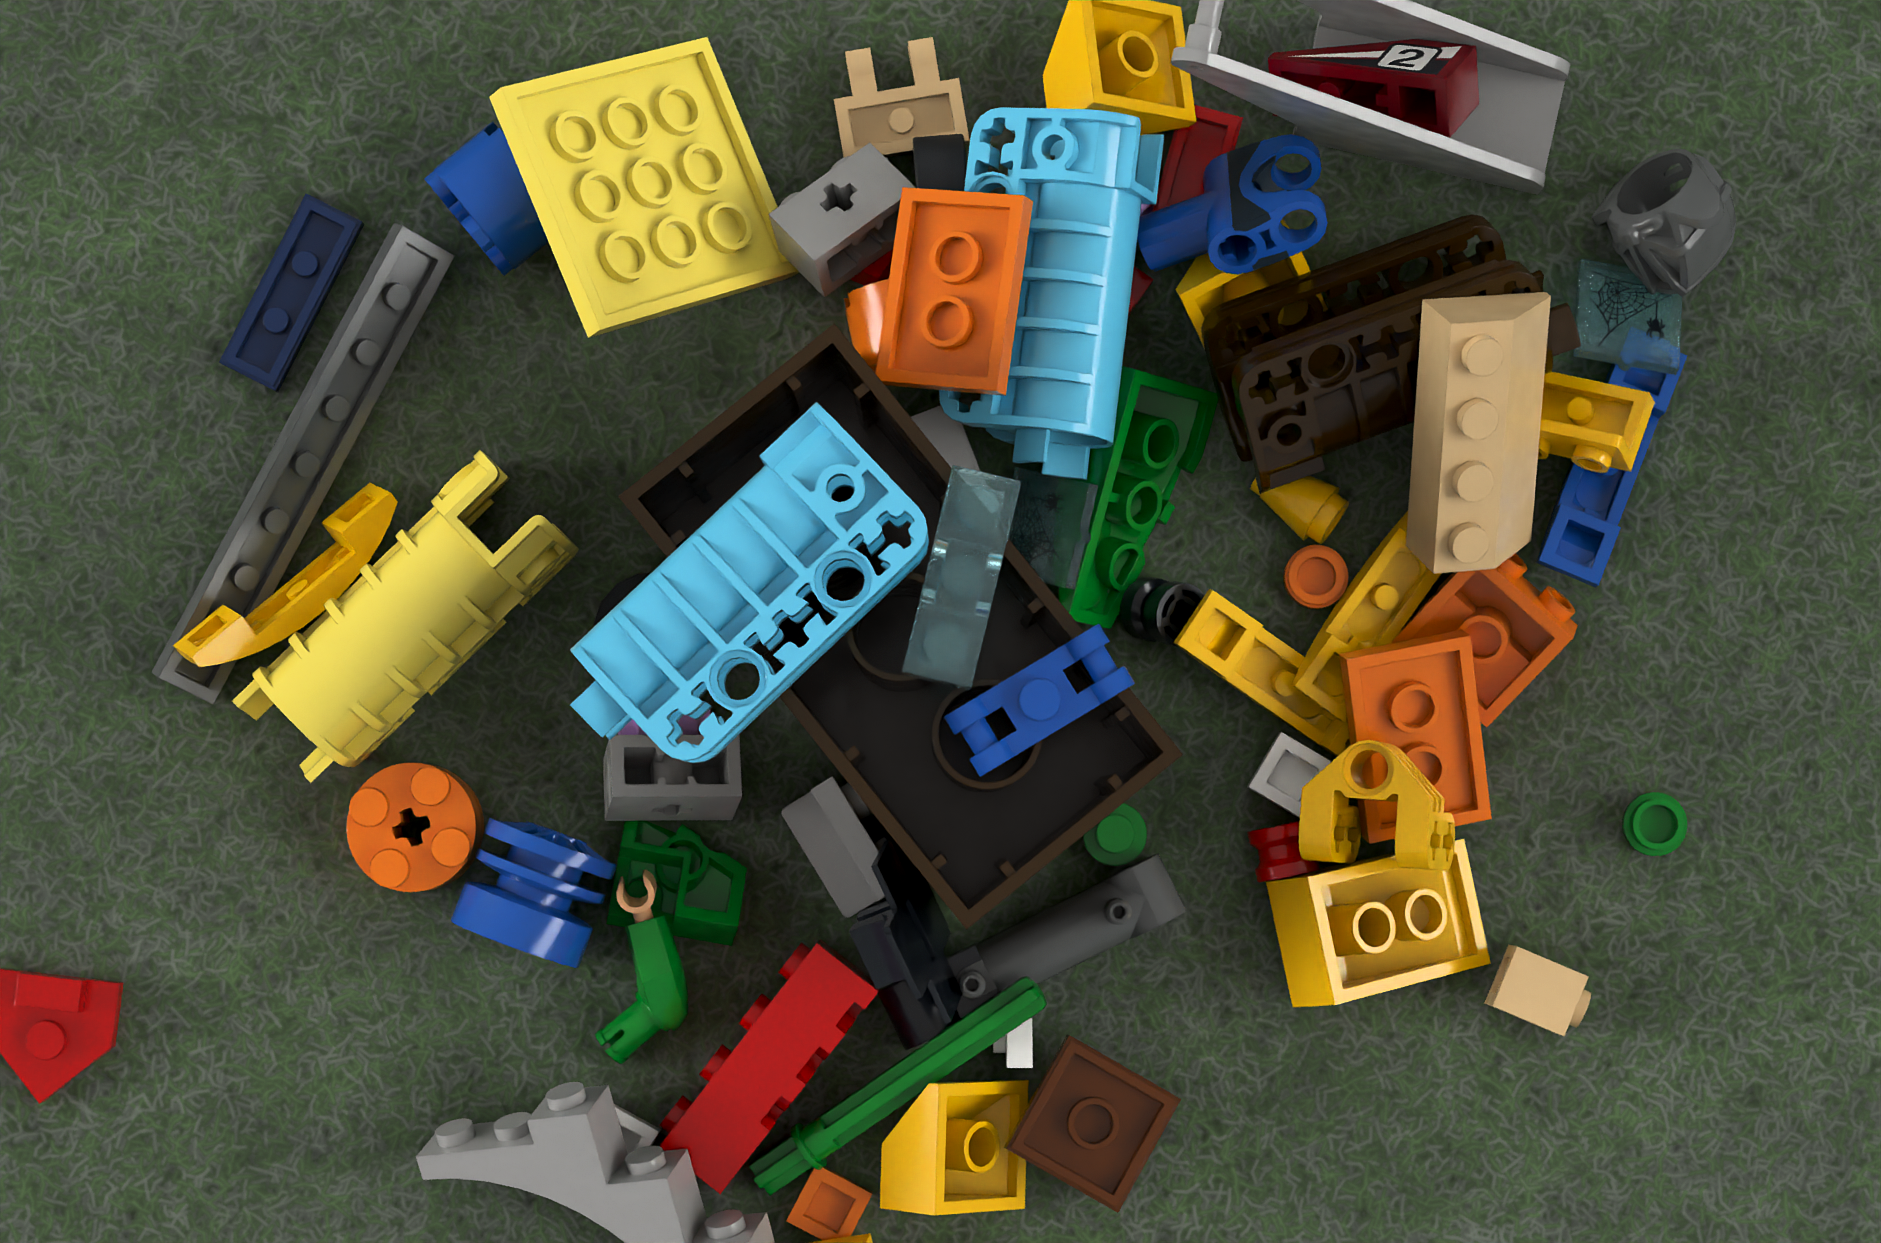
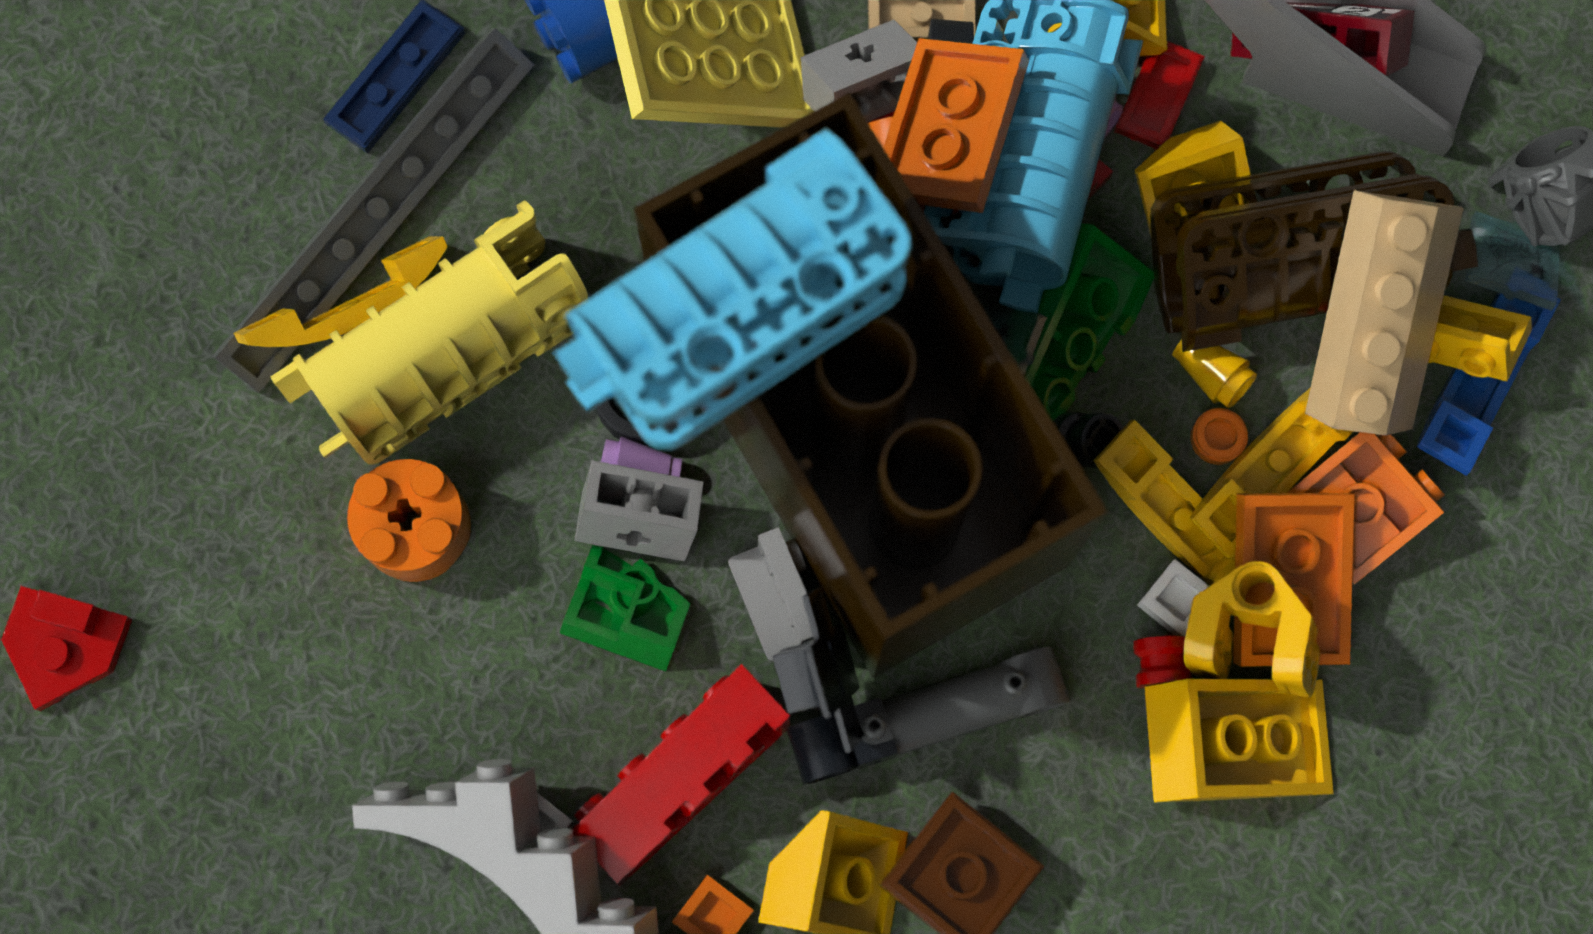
camera: 10 degrees right, 10 degrees down
(534, 892) = (501, 588): blue wheel -> none
(660, 978) = (597, 684): green arm -> none
(897, 1085) = (791, 812): green axle -> none
(961, 577) = (929, 315): clear light blue arch -> none
(1017, 1046) = (902, 785): white plate -> none
(1039, 700) = (984, 439): blue plate -> none
(1117, 837) = (1016, 626): green plate -> none
(1240, 211) = (1195, 115): blue connector -> none
(1539, 991) = (1376, 822): tan brick -> none
(1654, 824) = (1493, 693): green plate -> none

